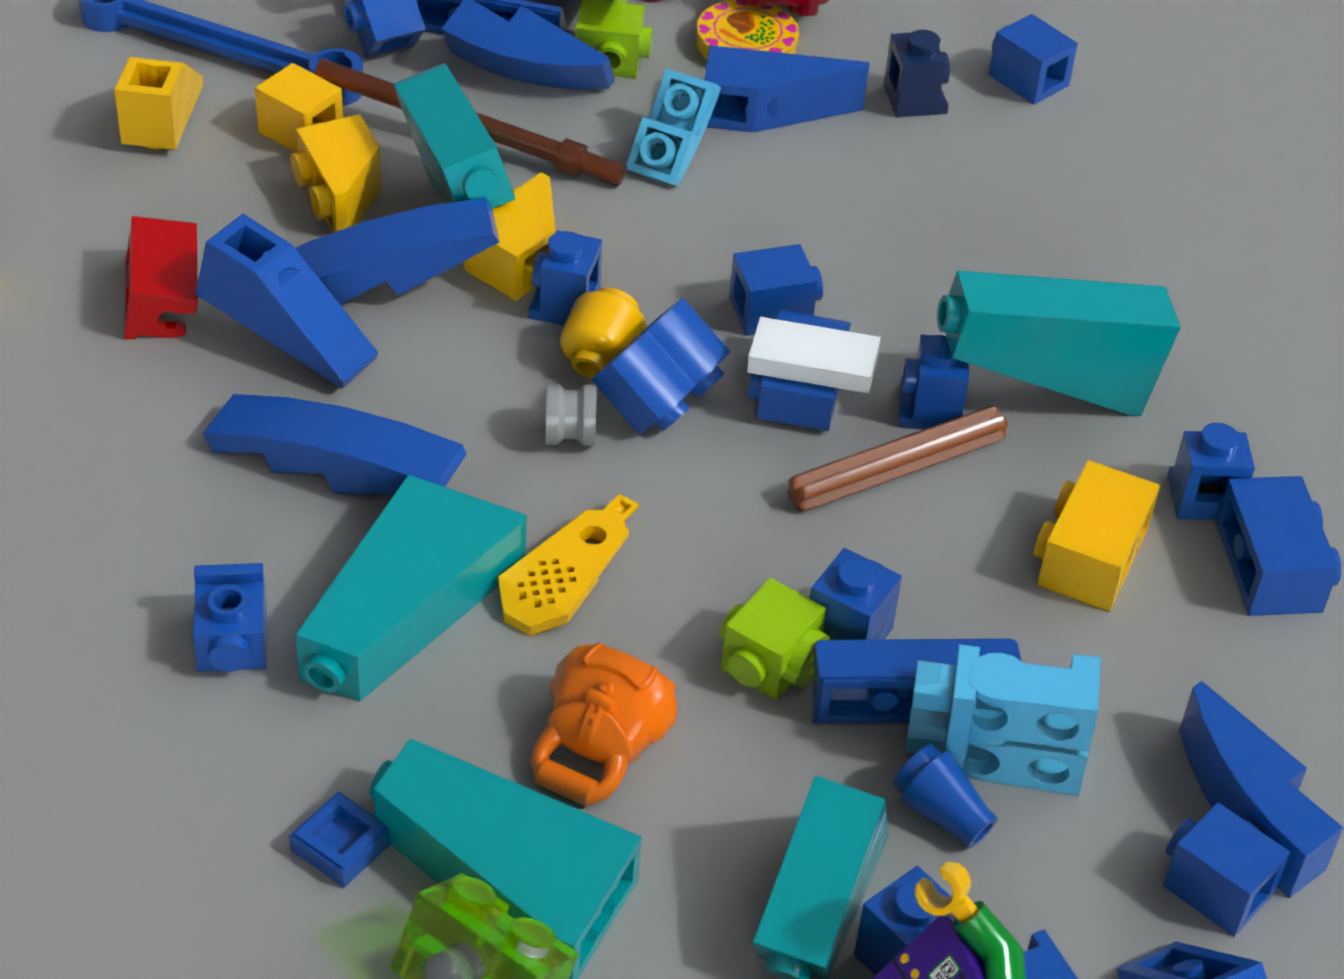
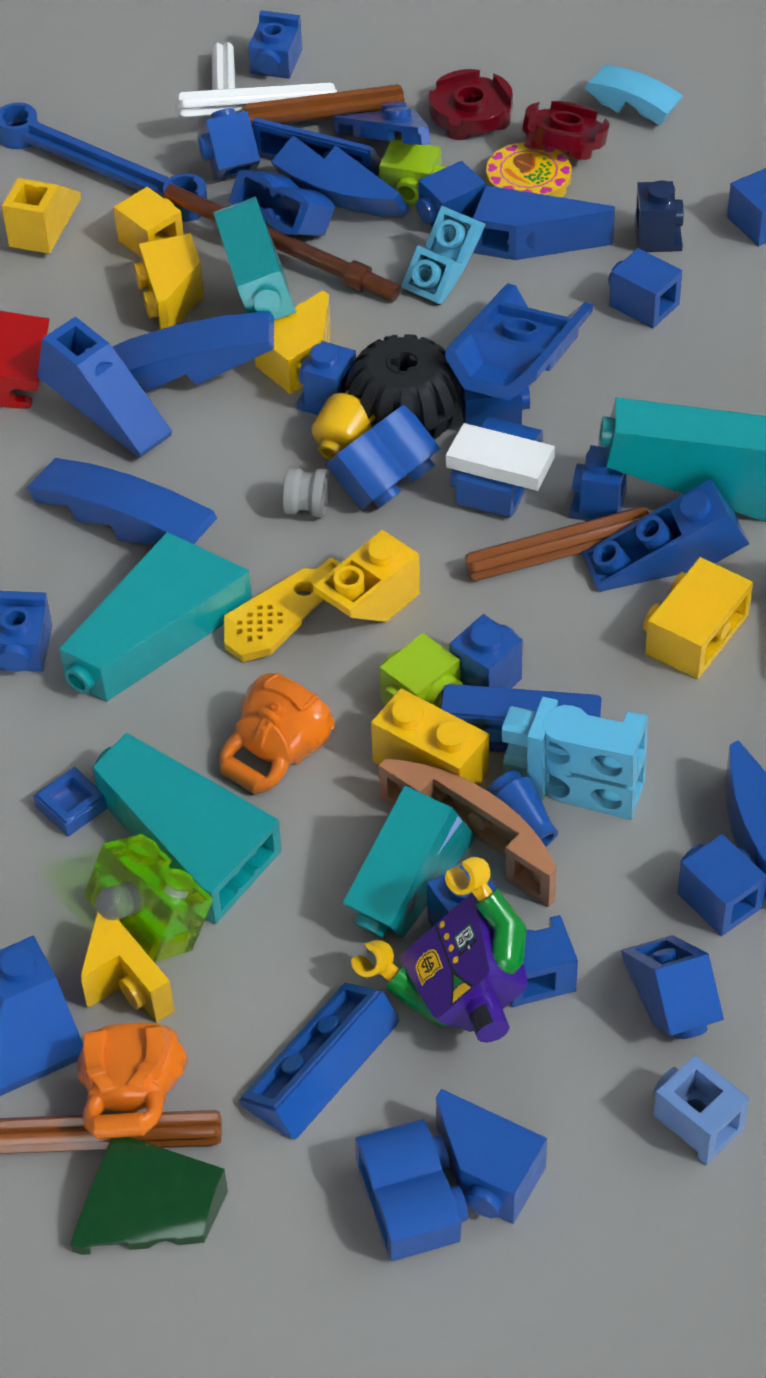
camera: 15 degrees right, 5 degrees up
(487, 82) = (284, 203): none -> blue brick
(663, 47) = (451, 187): none -> blue brick
(669, 261) = (406, 374): none -> black wheel
(687, 514) = (373, 580): none -> yellow slope
(794, 226) = (511, 344): none -> blue piece
(809, 722) = (430, 736): none -> yellow brick
(915, 814) = (489, 818): none -> nougat slope
(922, 153) = (645, 287): none -> blue brick
(1035, 444) = (668, 540): none -> blue slope

